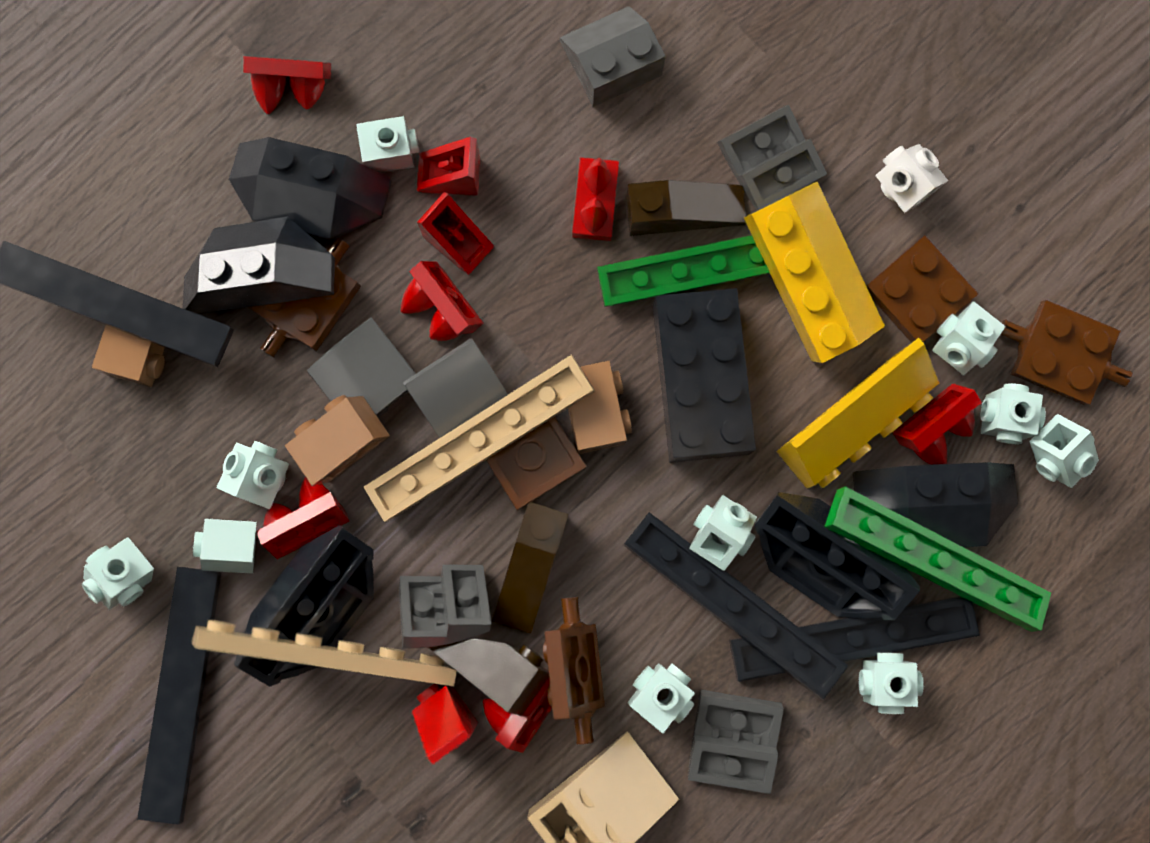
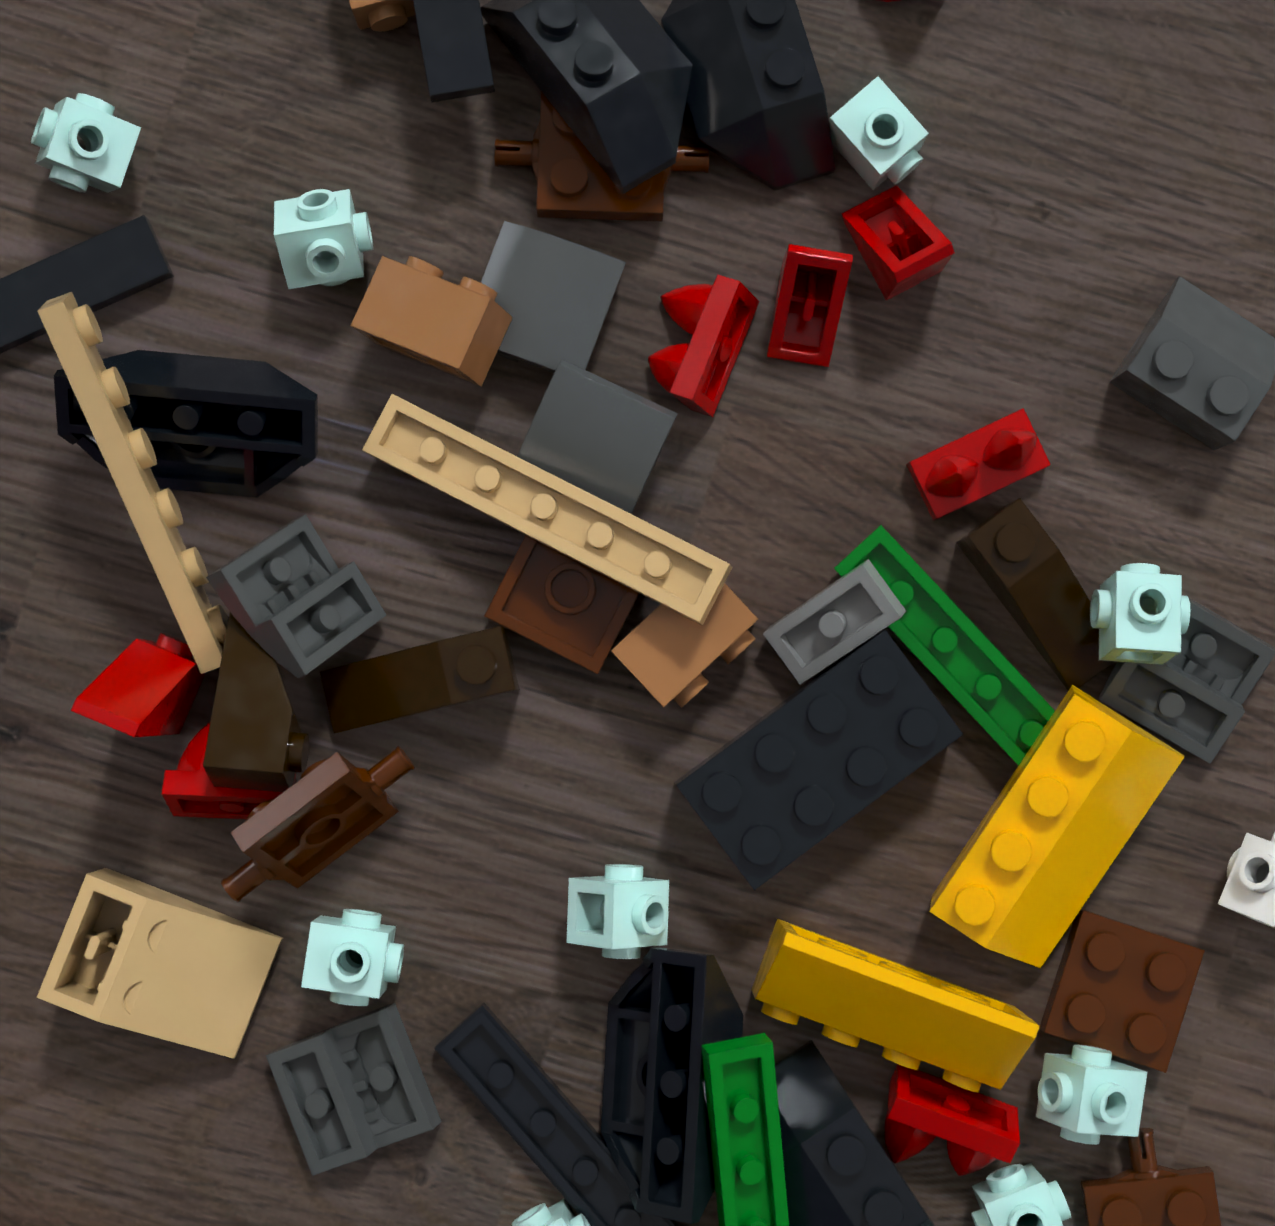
camera: 60 degrees right, 5 degrees up
(226, 545) = (206, 262): light aqua brick -> none
(290, 530) = (277, 332): red tile -> none
(634, 322) = (834, 622): none -> light grey plate
(728, 159) = (1140, 615): none -> light aqua brick
(736, 606) = (530, 987): black tile -> none

